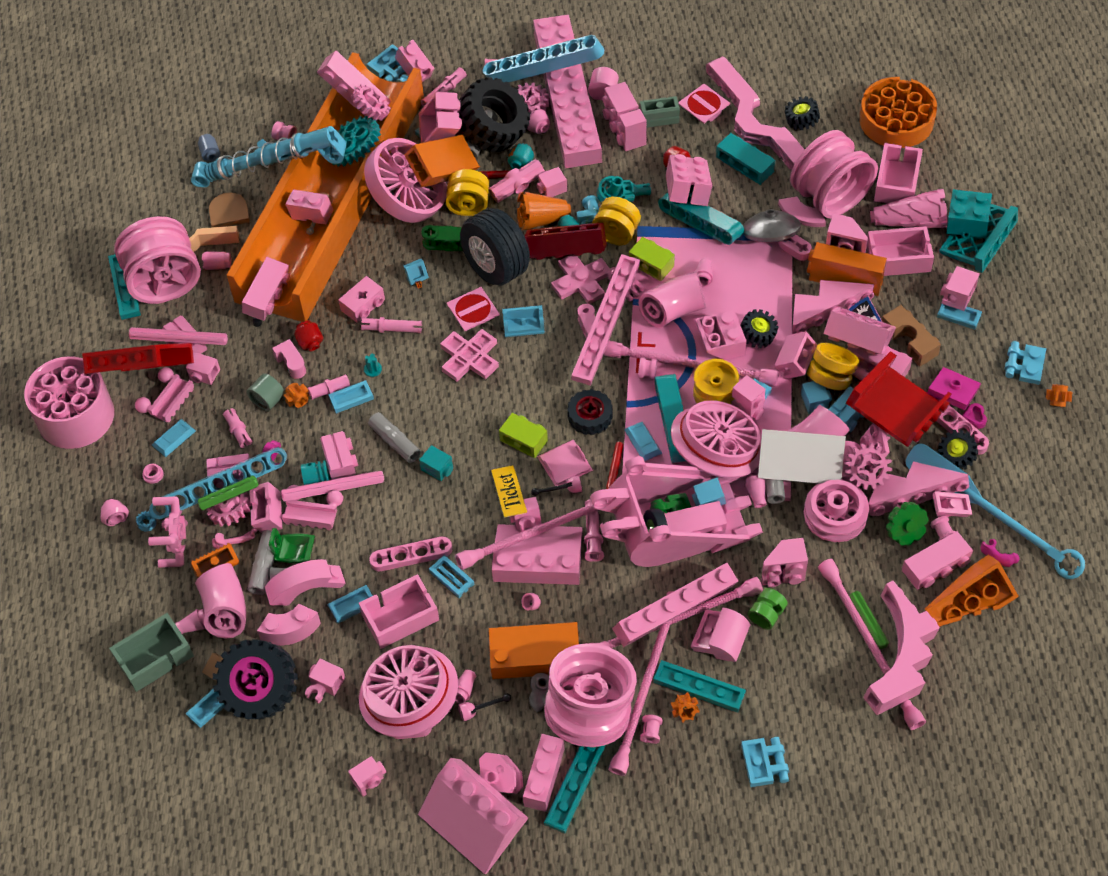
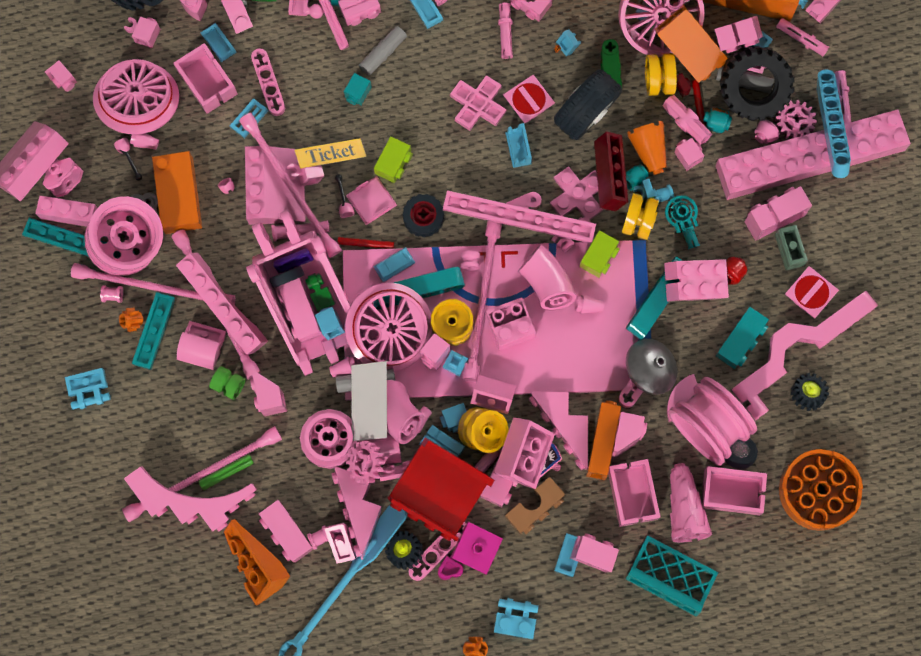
camera: 85 degrees right, 20 degrees up
(372, 367) = (459, 22): teal piece -> none
(600, 79) = (823, 189): bright pink piece -> none
(759, 328) = (523, 359): black wheel -> none
(907, 523) = (319, 501): green plant -> none
(969, 213) = (687, 562): teal brick -> none
(1005, 560) = (293, 592): dark pink piece -> none

